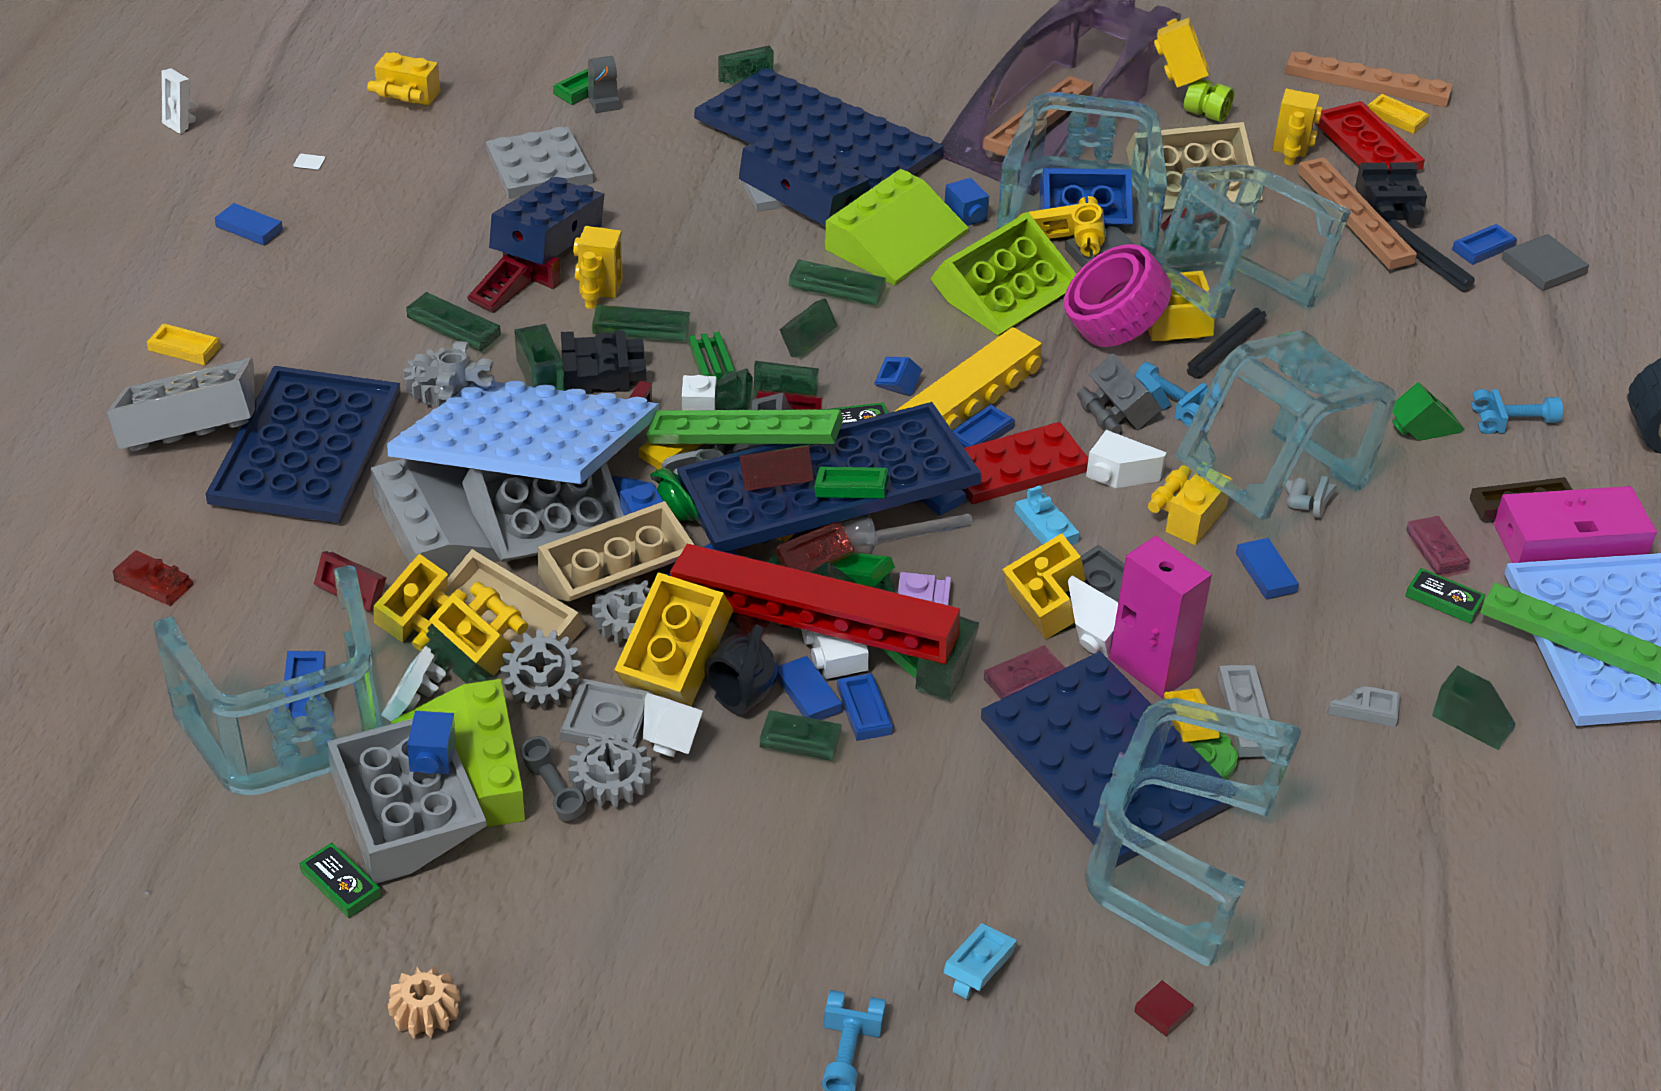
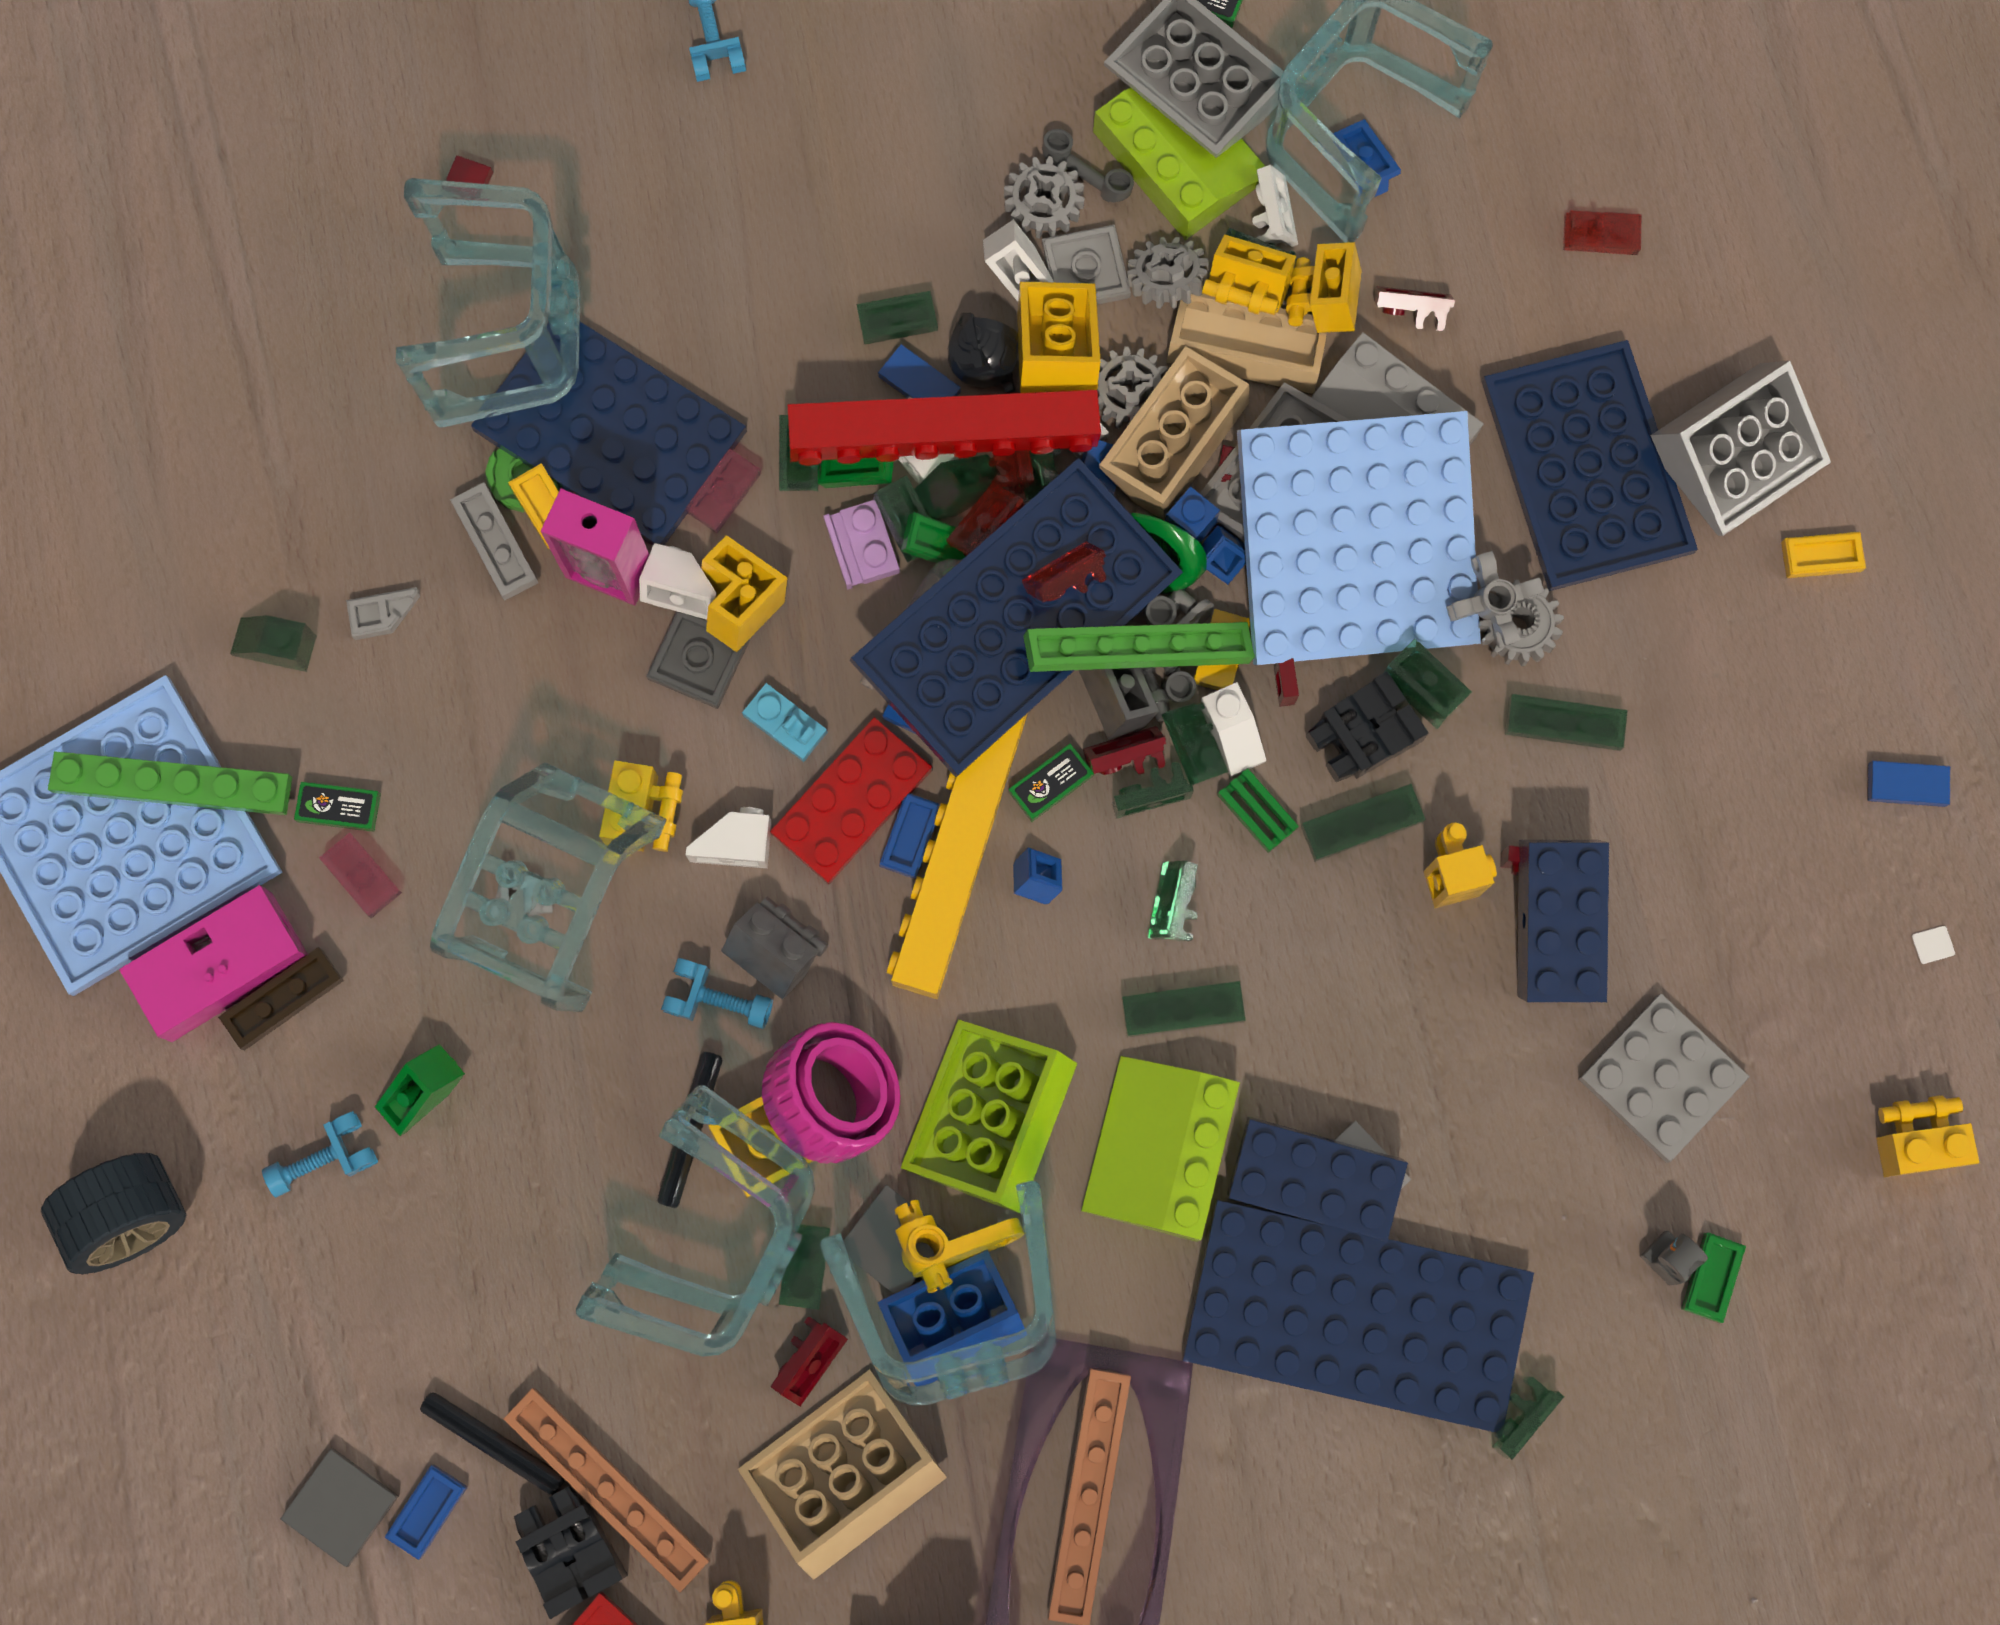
camera: 155 degrees right, 35 degrees up
(431, 742) = (1192, 95): blue brick -> none
(504, 268) = (1544, 814): dark red slope -> none
(851, 482) = (979, 588): green tile -> none
(864, 707) = (853, 379): blue tile -> none
(967, 201) = (1099, 1246): blue brick -> none
(978, 959) = (634, 145): medium azure plate -> none
(1154, 388) = (742, 981): dark azure tile -> none
(1267, 568) = (526, 750): blue tile -> none

